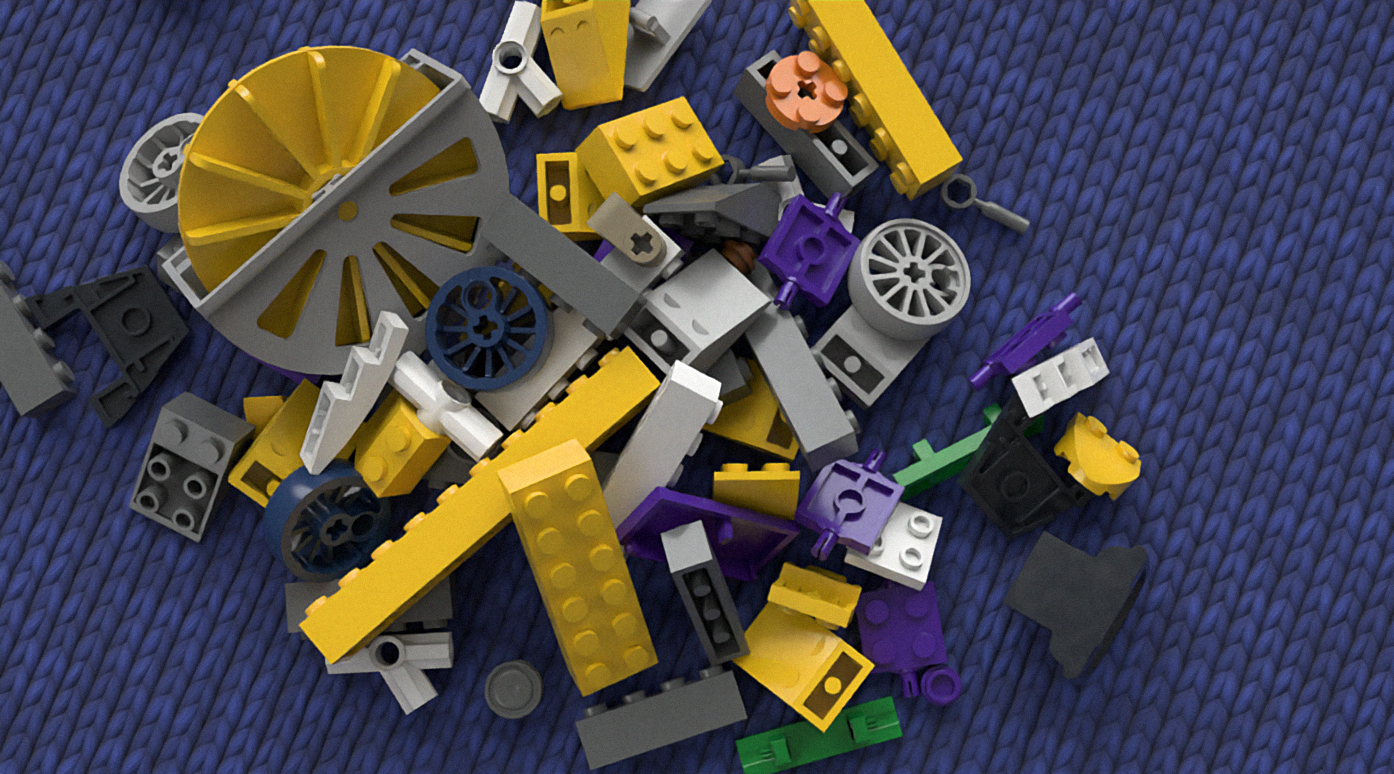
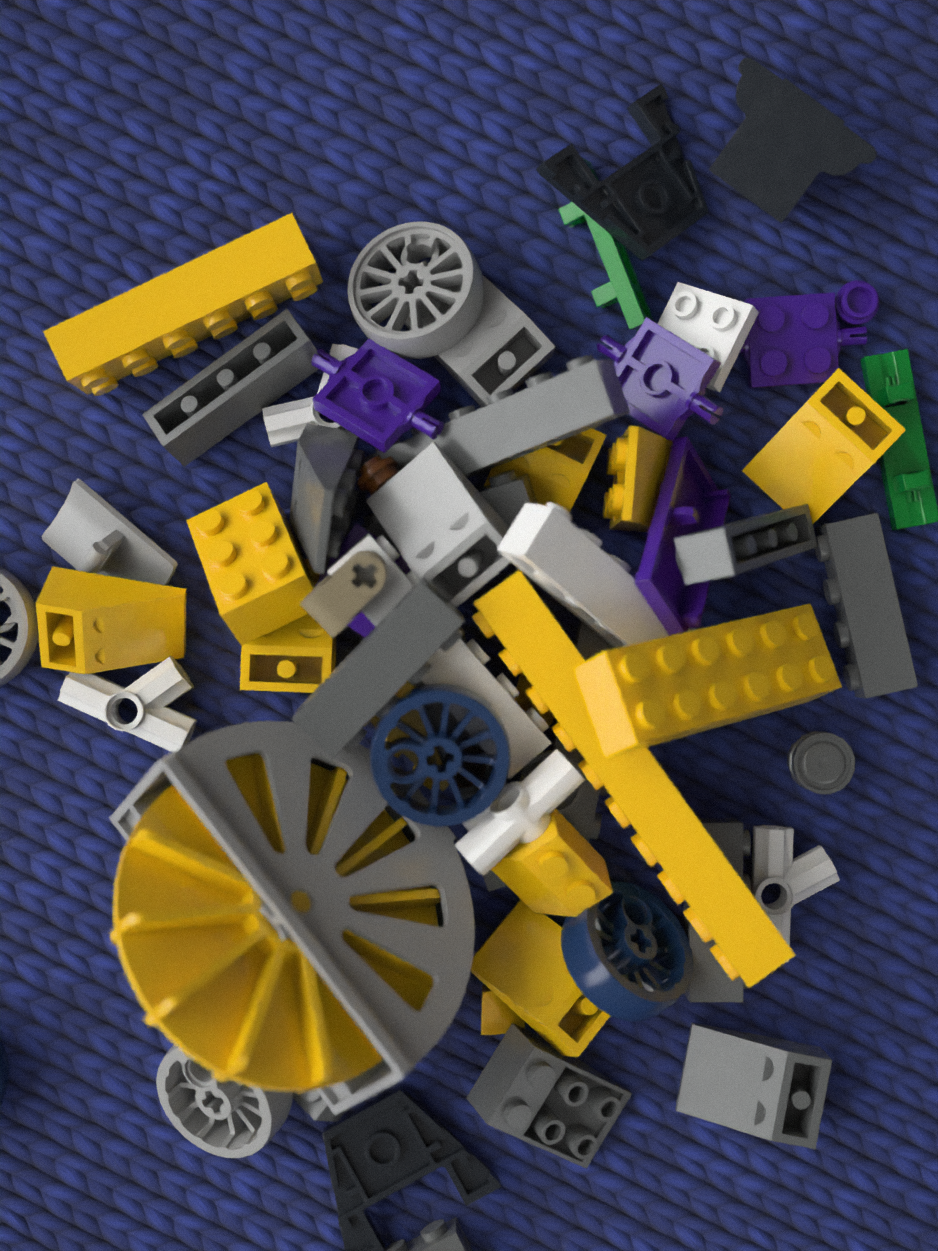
camera: 85 degrees left, 5 degrees up
(214, 652) = (755, 1084): none -> slope
(346, 404) = (506, 917): white slope -> none
(756, 173) = (281, 447): dark grey piece -> none
(815, 593) = (752, 425): yellow slope -> none
(819, 79) = (185, 363): orange plate -> none
(989, 209) = (339, 196): dark grey piece -> none
(1018, 352) = (497, 166): dark purple plate -> none
(1060, 377) = (543, 132): white slope -> none
(1097, 458) = (632, 103): yellow slope -> none

